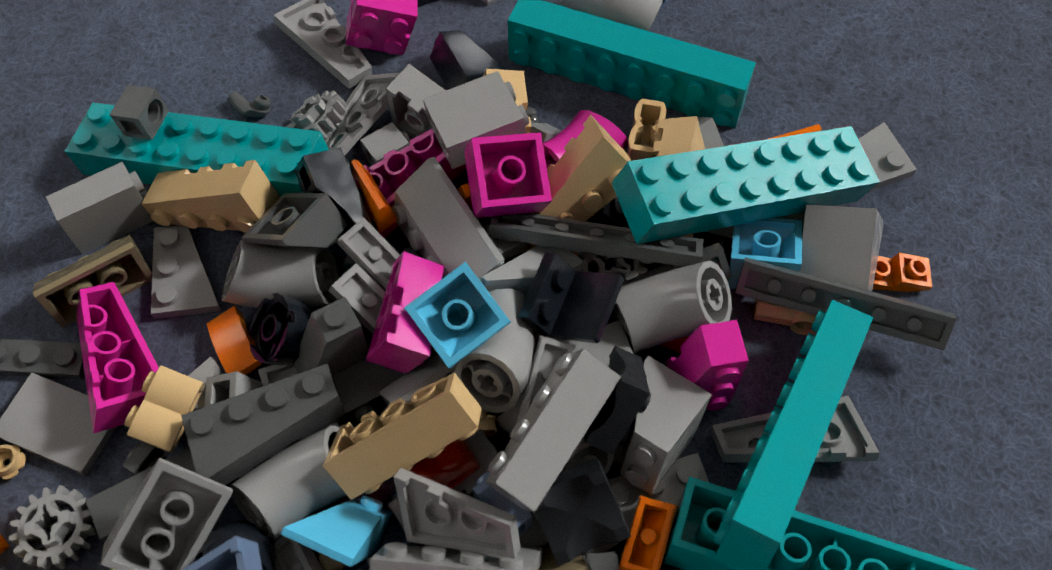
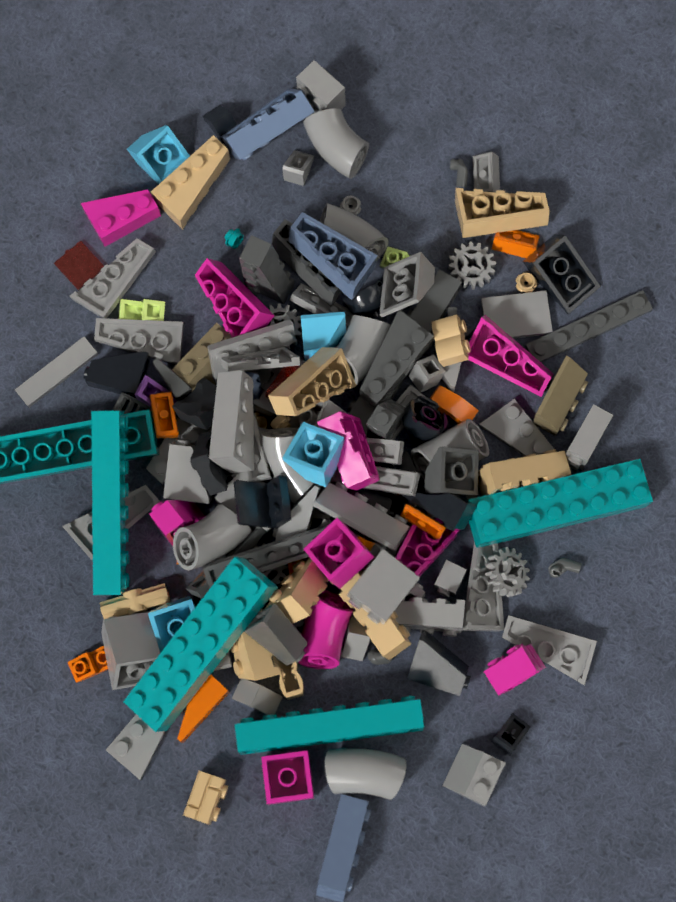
camera: 155 degrees right, 15 degrees up
(139, 112) = (602, 496): dark grey brick -> none
(639, 136) = (277, 635): none -> dark grey slope
(708, 27) = (287, 777): none -> dark pink brick
(811, 69) = (205, 798): none -> tan brick
(812, 293) = (114, 605): dark grey plate -> none

